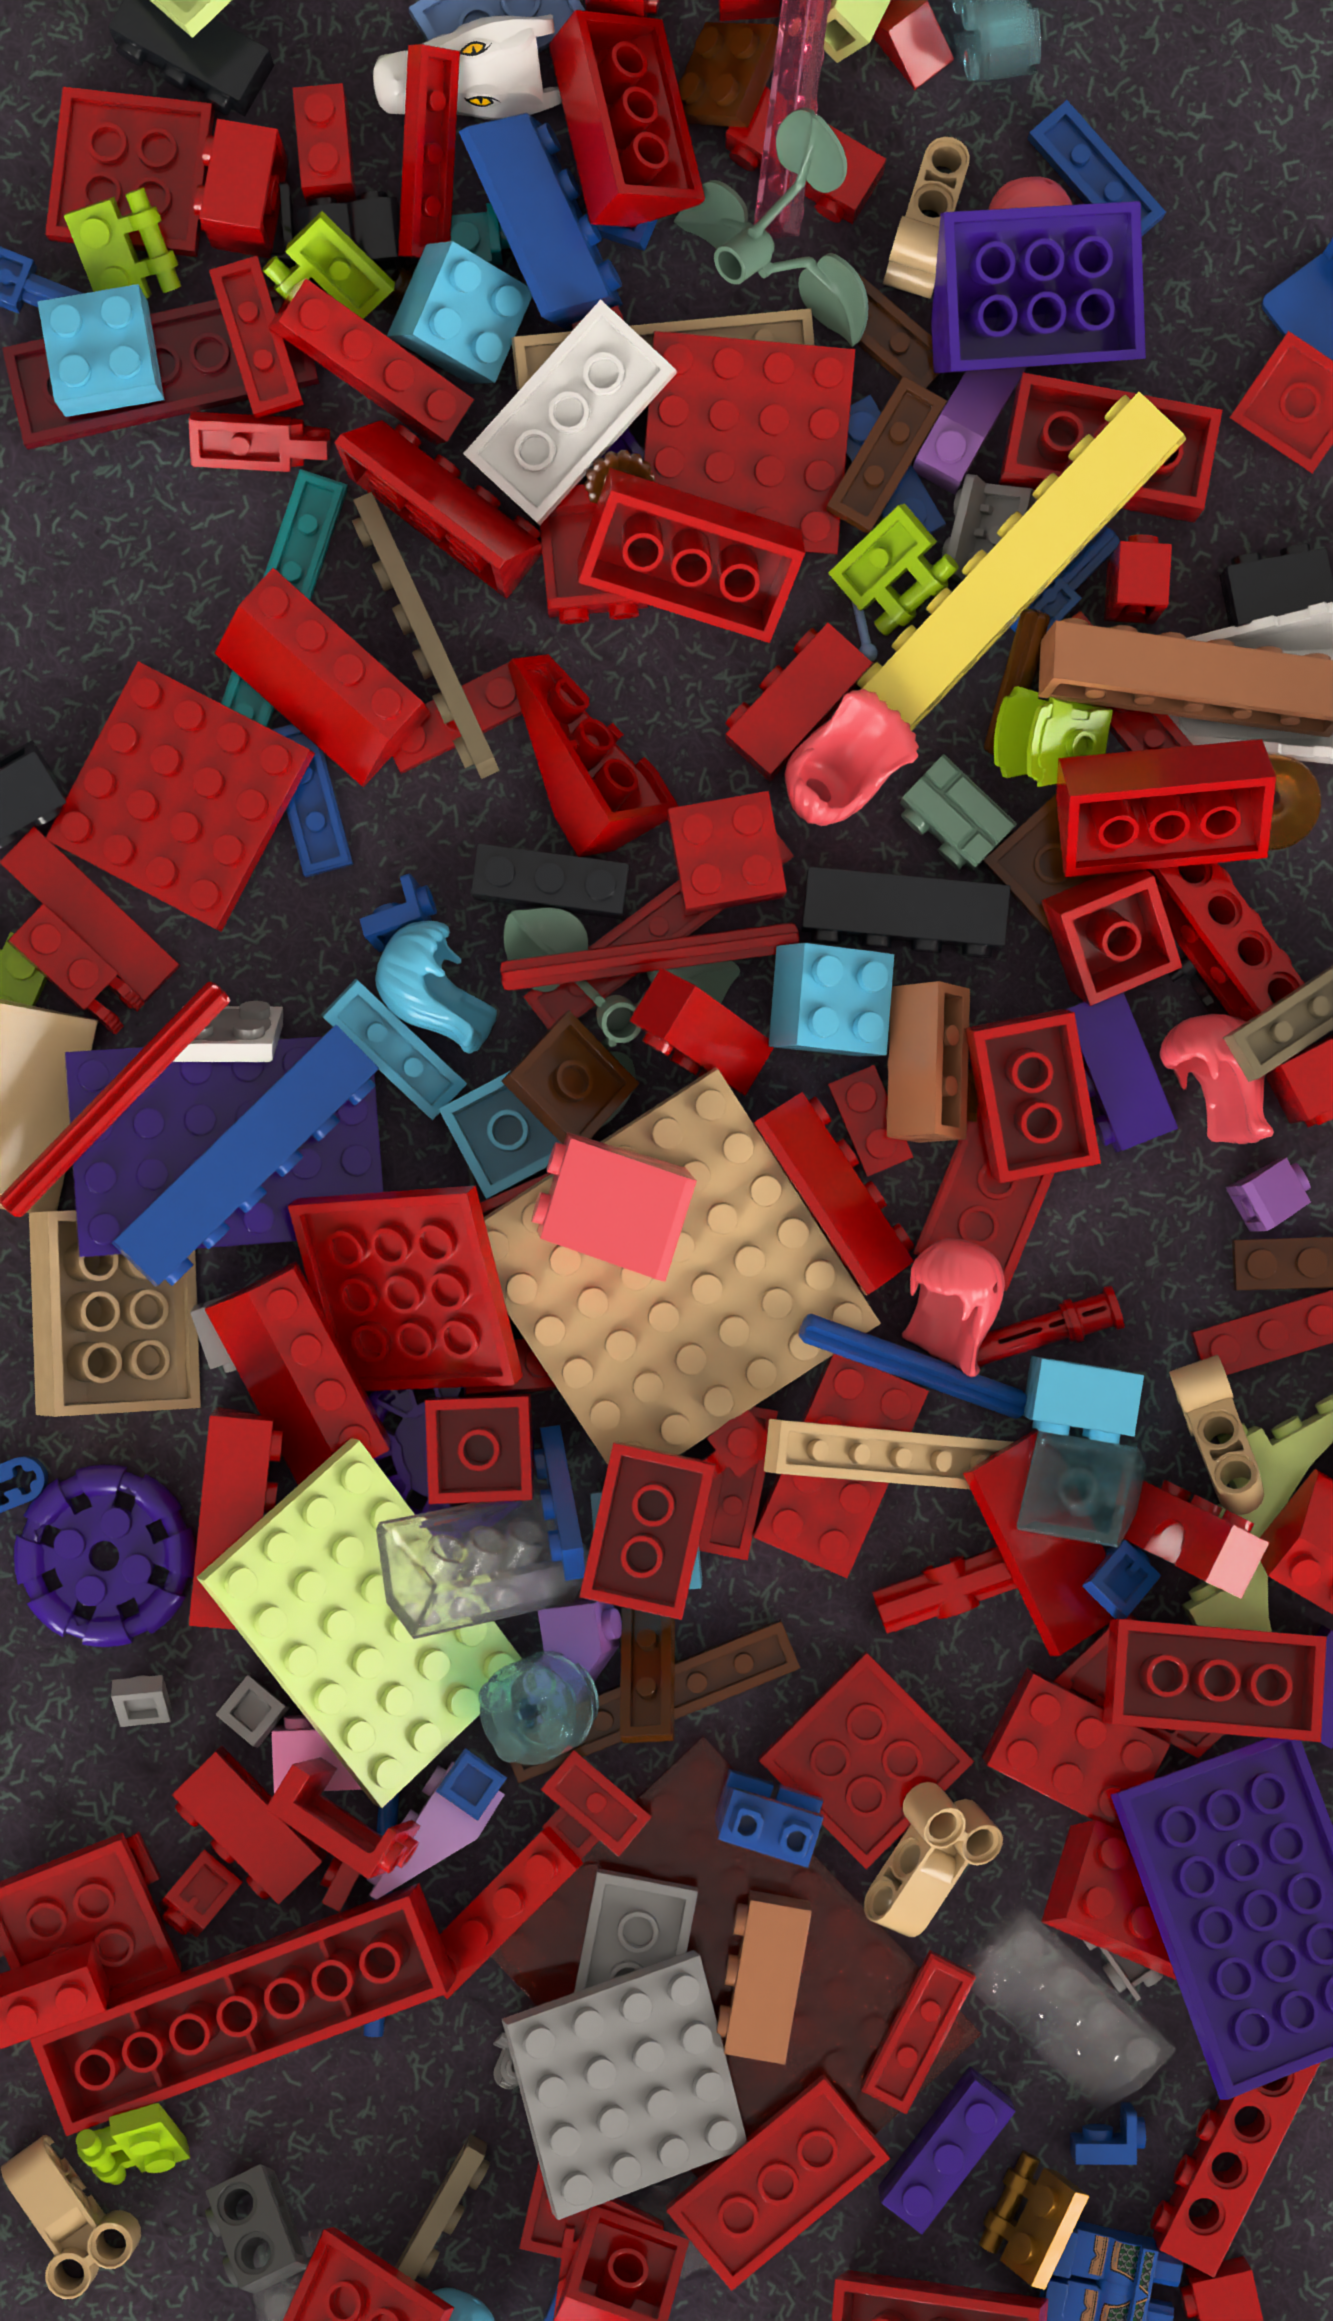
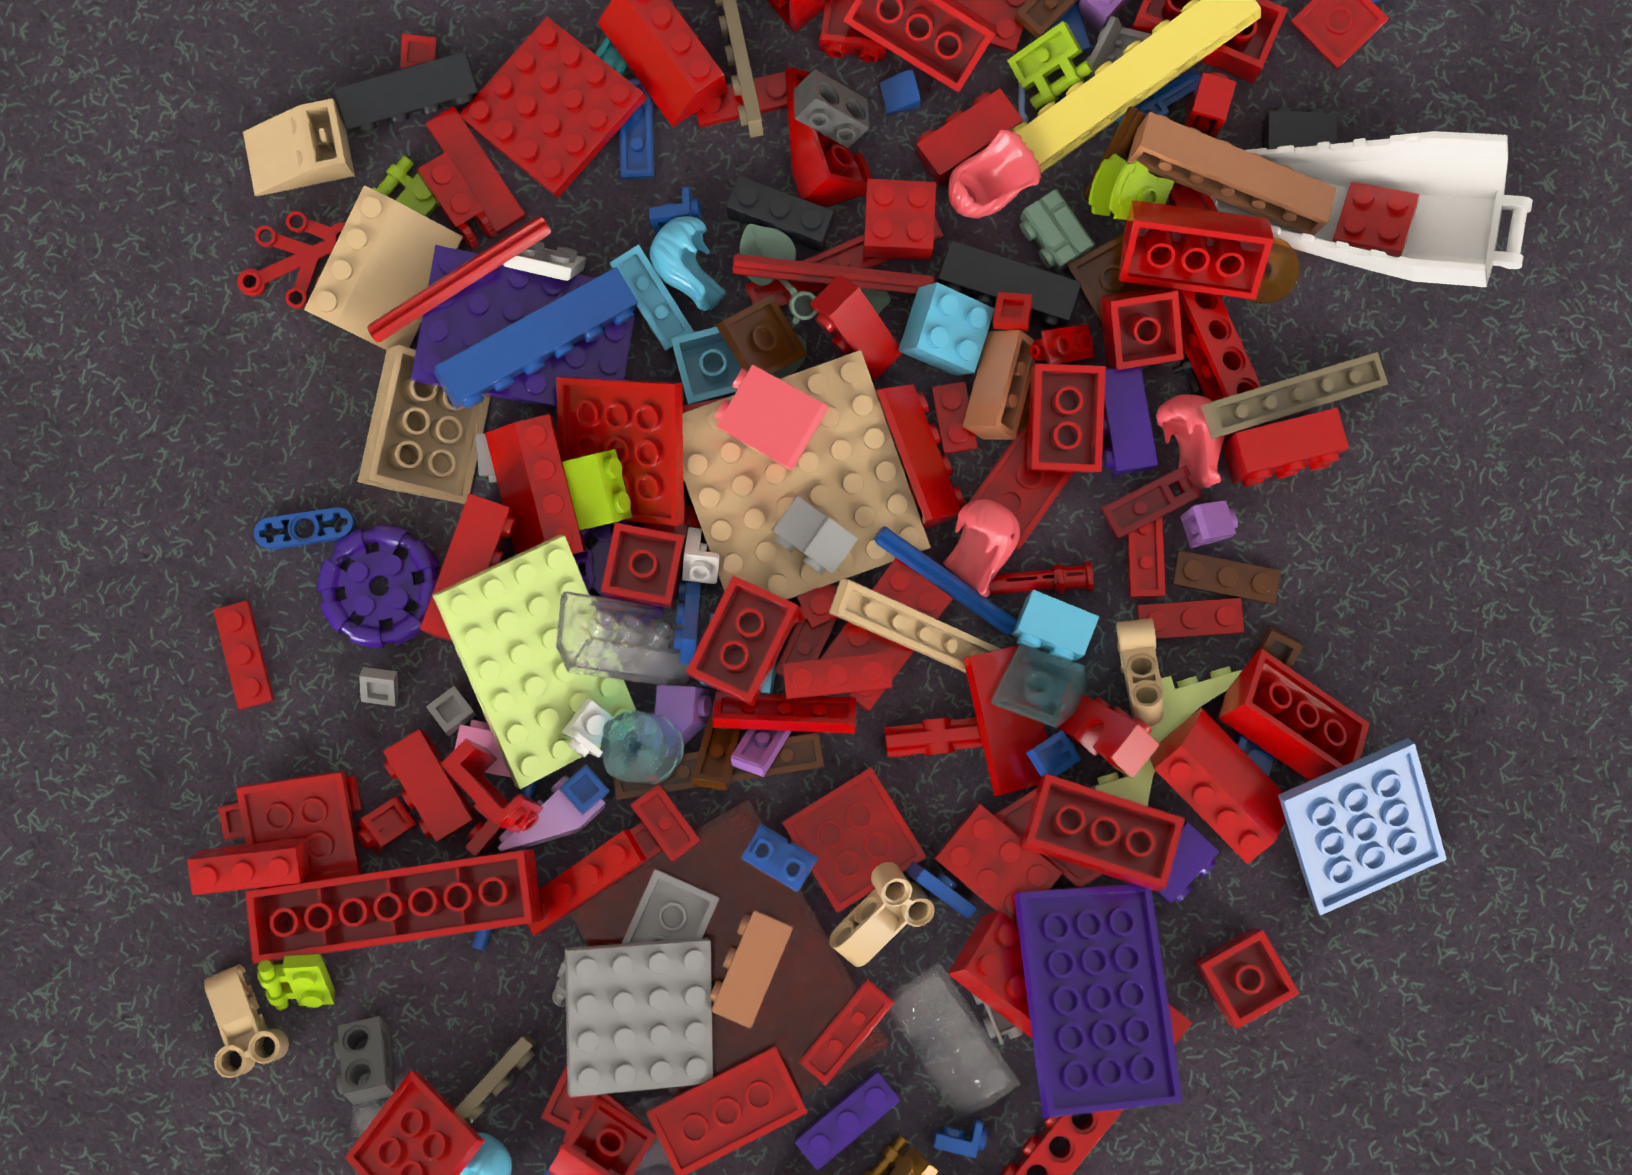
camera: 15 degrees right, 5 degrees down
(387, 1356) = (597, 489): none -> lime brick
(455, 1700) = (586, 728): none -> white bracket
(555, 1428) = (698, 563): none -> white bracket
(590, 711) = (831, 108): none -> dark grey brick
(682, 656) = (900, 92): none -> blue slope
(709, 1649) = (758, 750): none -> medium lavender hinge
(719, 1354) = (814, 535): none -> light grey brick
(736, 1611) = (778, 713): none -> red plate
(791, 1543) = (837, 675): none -> red plate
(921, 955) = (1012, 311): none -> red plate
(1005, 1802) = (942, 888): none -> blue plate
(1006, 985) = (1063, 345): none -> red hinge
(1179, 1186) = (1149, 503): none -> dark red plate
(1184, 1244) = (1146, 561): none -> red plate

